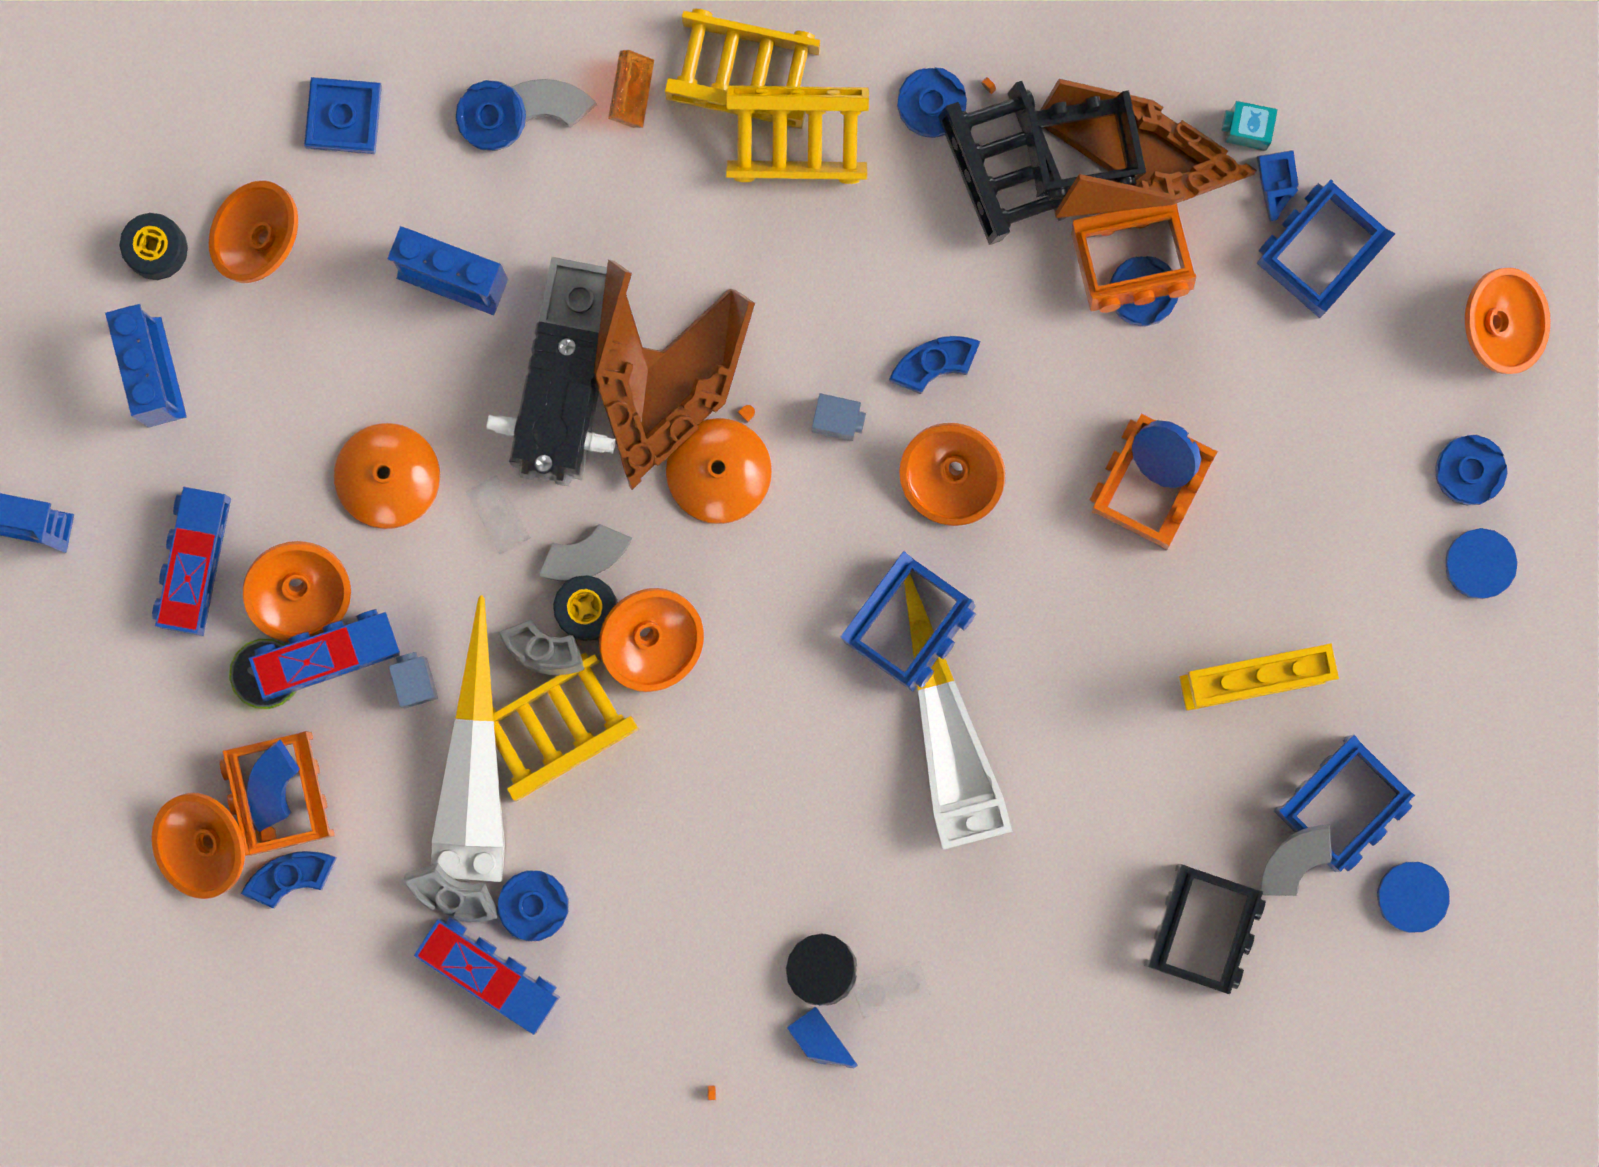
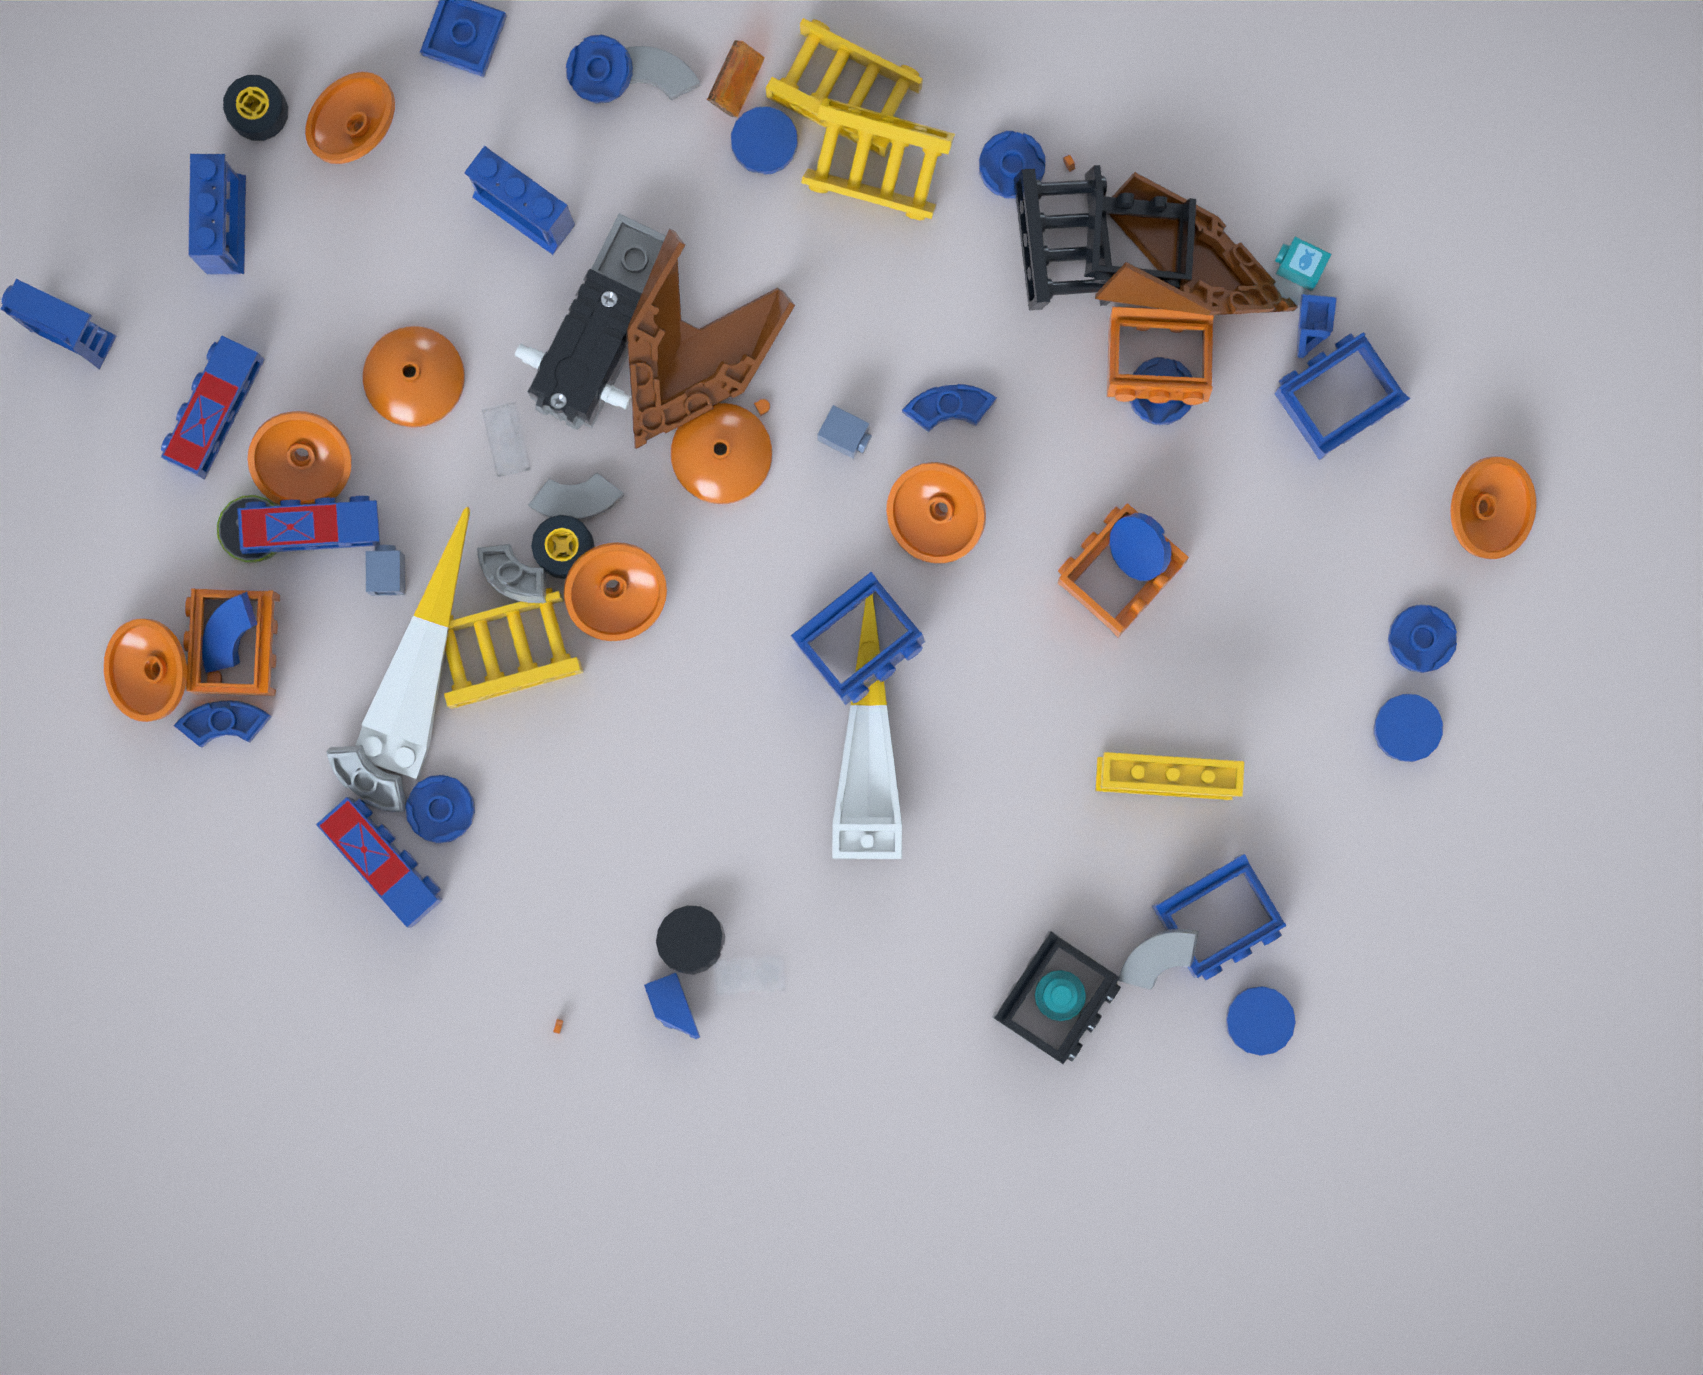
camera: 15 degrees right, 0 degrees up
(676, 143) = (764, 140): none -> blue tile
(1206, 925) = (1060, 995): none -> teal plate

